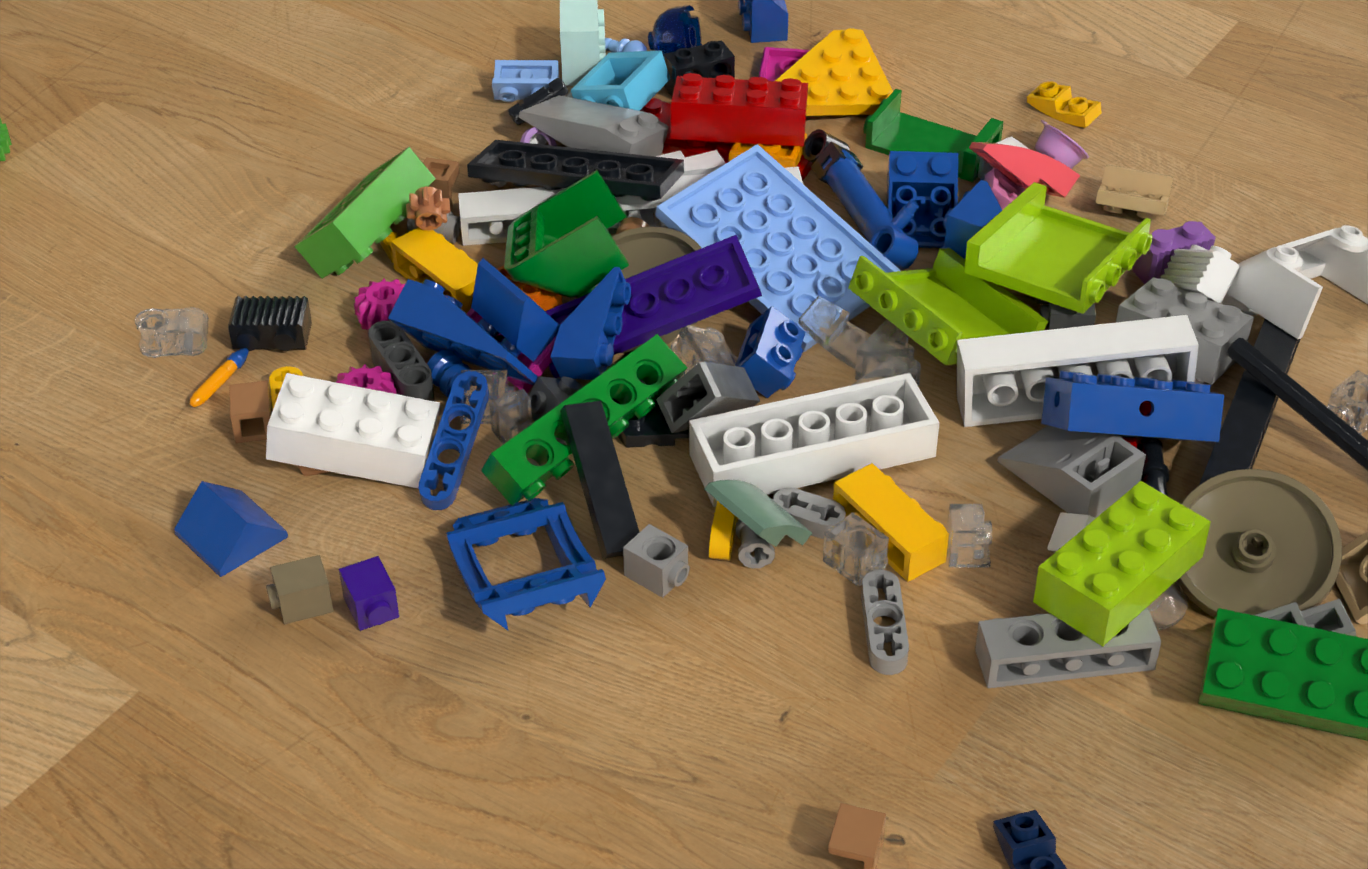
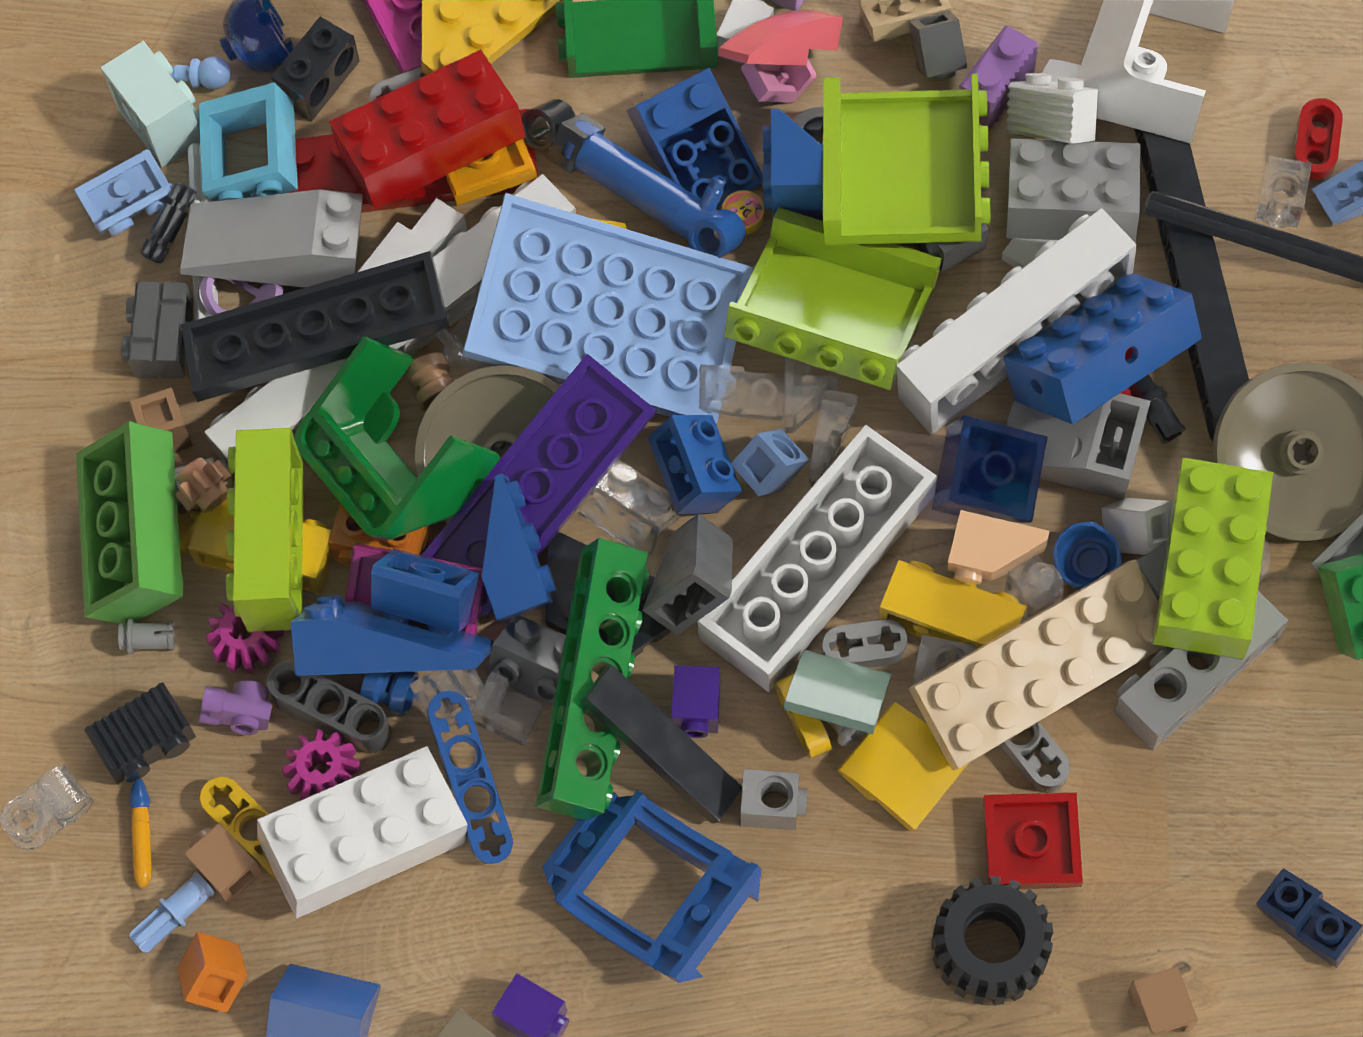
camera: 30 degrees left, 25 degrees up
(184, 463) = (211, 972): none -> orange panel
(193, 423) = (171, 913): none -> light blue axle
(318, 278) = (145, 636): none -> light grey pin
(341, 341) = (243, 709): none -> medium lavender plate
(443, 231) = (266, 529): none -> lime brick
(479, 136) = (156, 331): none -> dark grey brick
(655, 479) = (696, 700): none -> dark purple brick
(749, 752) = (997, 903): none -> black tyre
(776, 594) = (900, 767): none -> yellow slope
(823, 369) = (770, 462): none -> medium blue brick
(837, 687) = (1033, 839): none -> red plate
(923, 572) = (1040, 665): none -> tan plate
(927, 252) = (747, 207): none -> tile
(945, 476) = (992, 547): none -> light nougat slope
(984, 447) = (989, 470): none -> clear blue slope
(1024, 533) = (1085, 553): none -> blue hair
(1138, 208) = (938, 45): none -> dark grey brick

